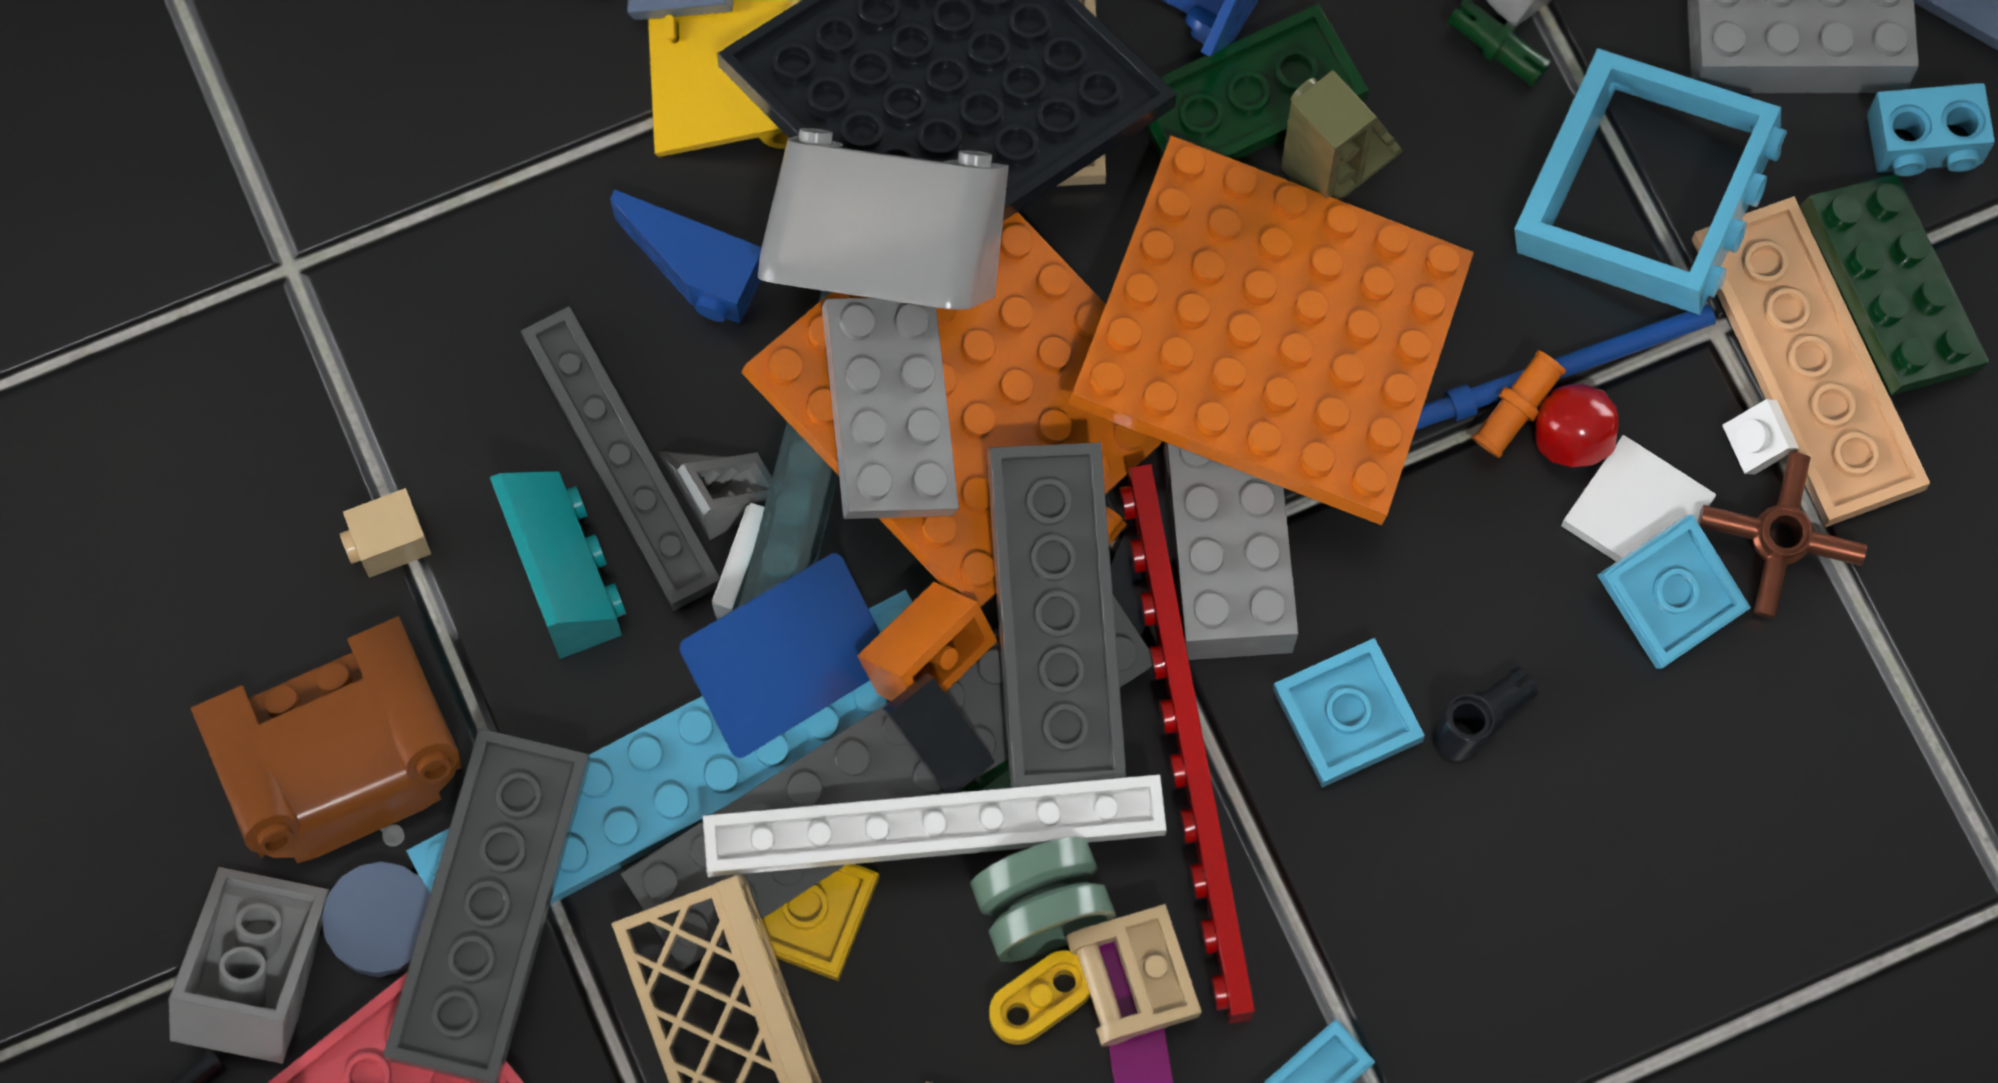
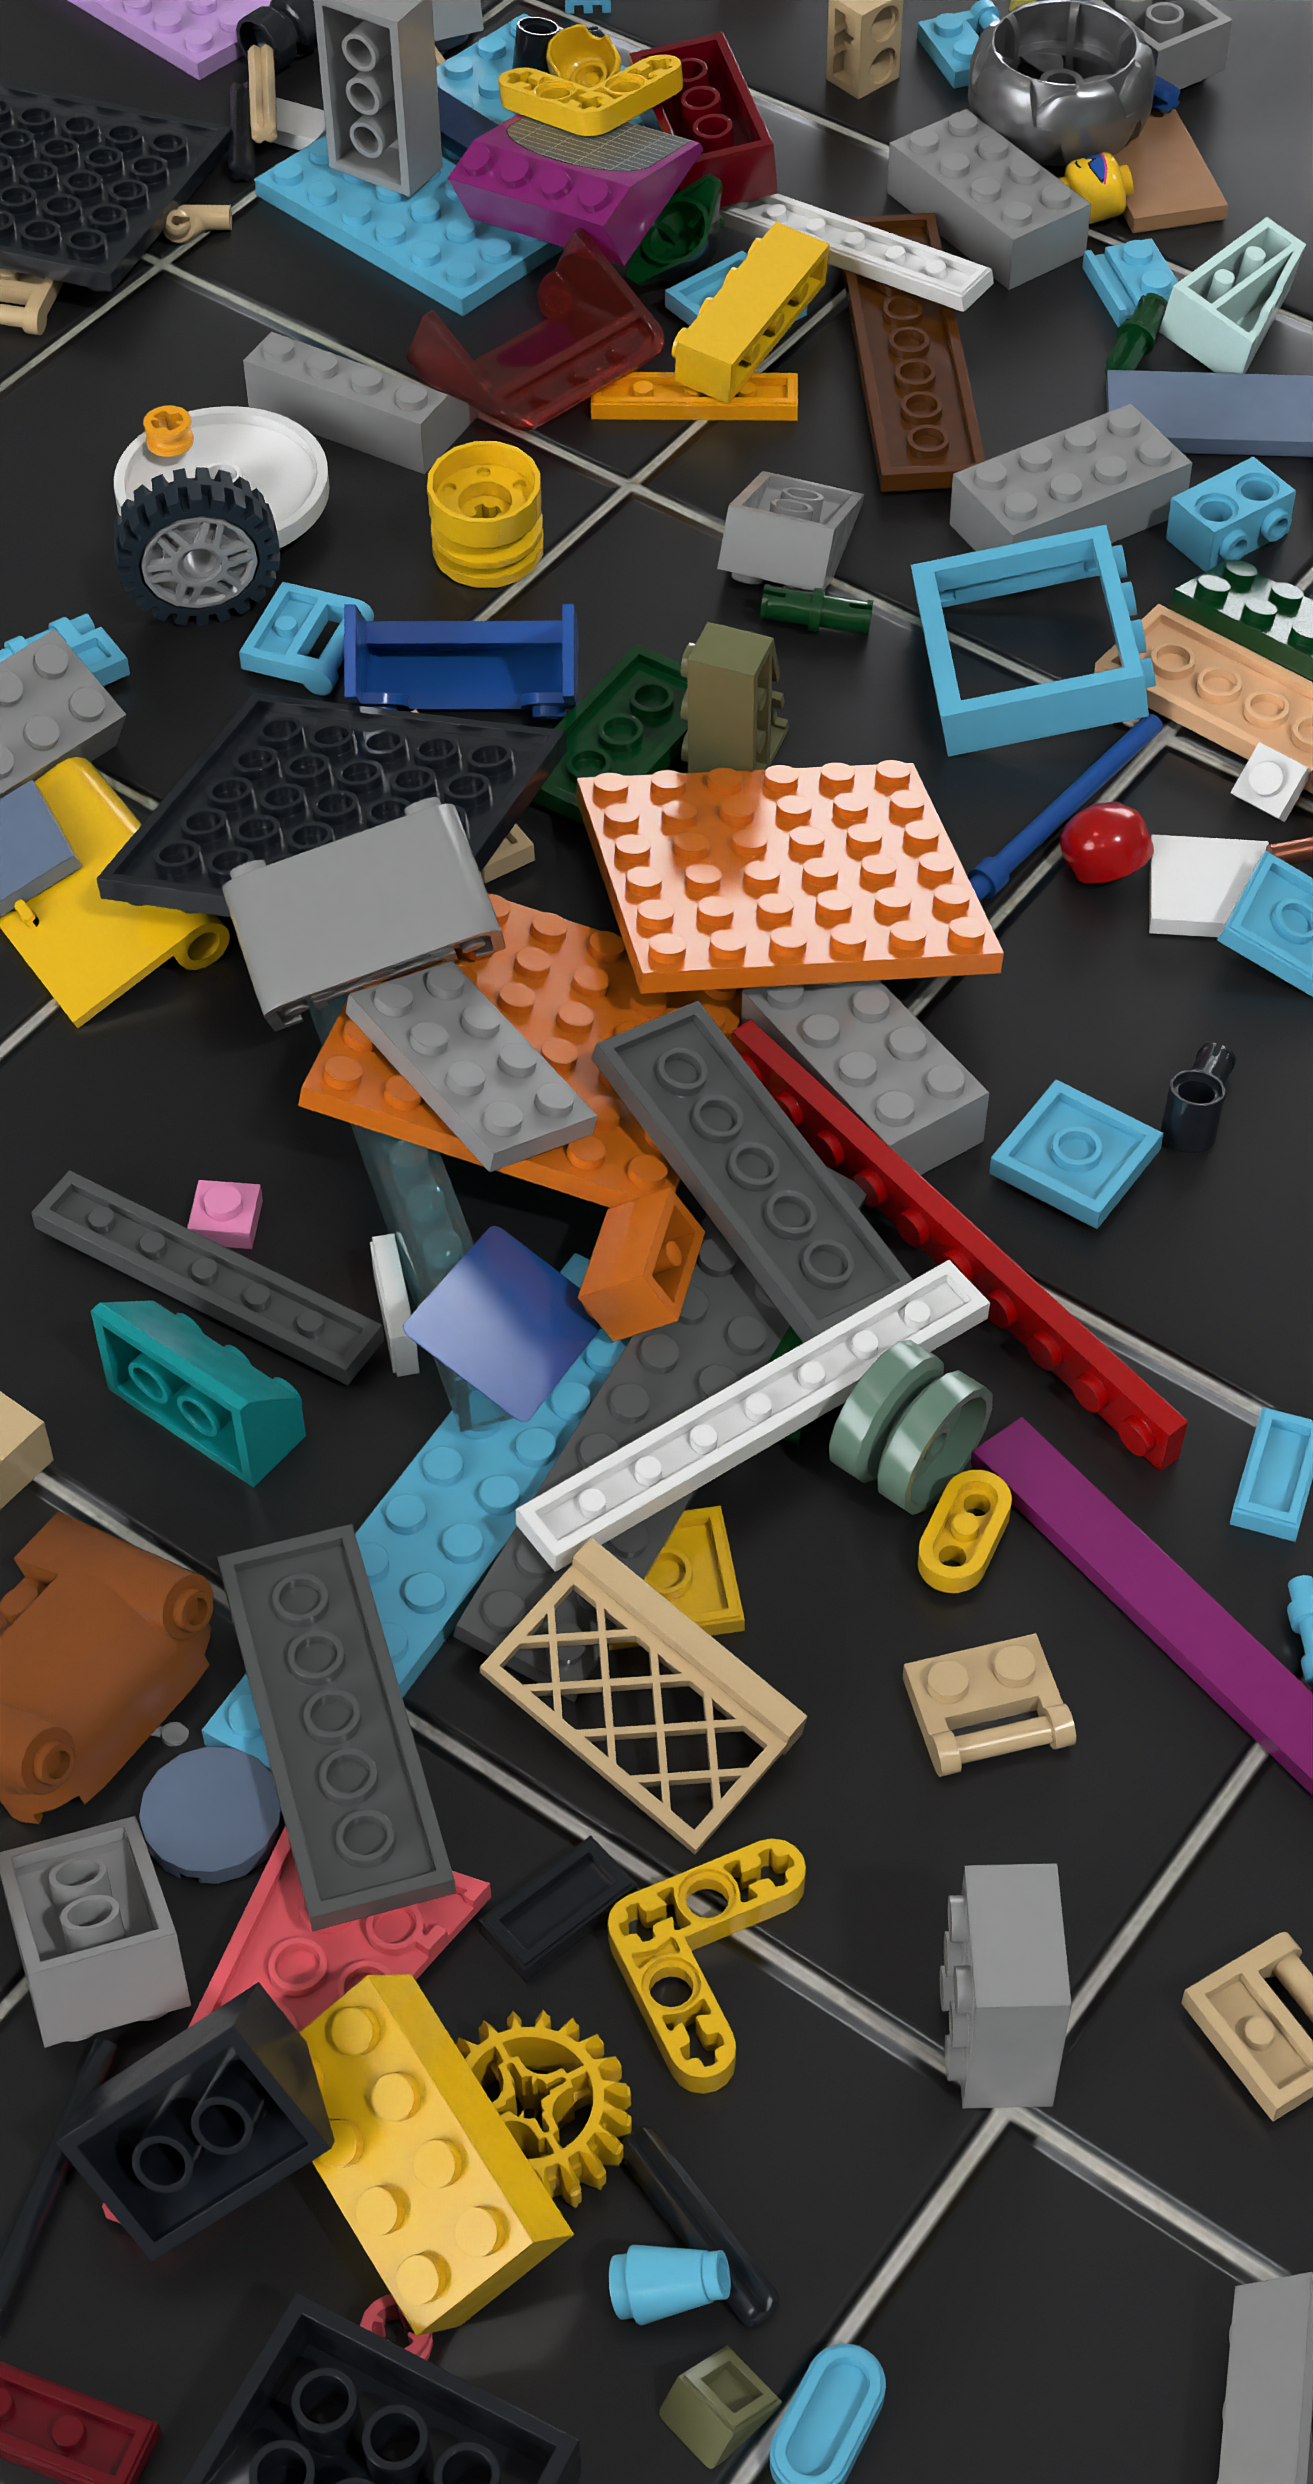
camera: 30 degrees left, 20 degrees down
(669, 403) = (226, 1212): none -> bright pink plate
(704, 264) = (169, 1079): blue slope -> none
(719, 486) = (322, 1255): light grey slope -> none
(938, 735) = (707, 1322): black tile -> none
(1152, 970) = (1056, 1439): tan plate -> none
(1518, 404) = (1043, 849): orange pin -> none

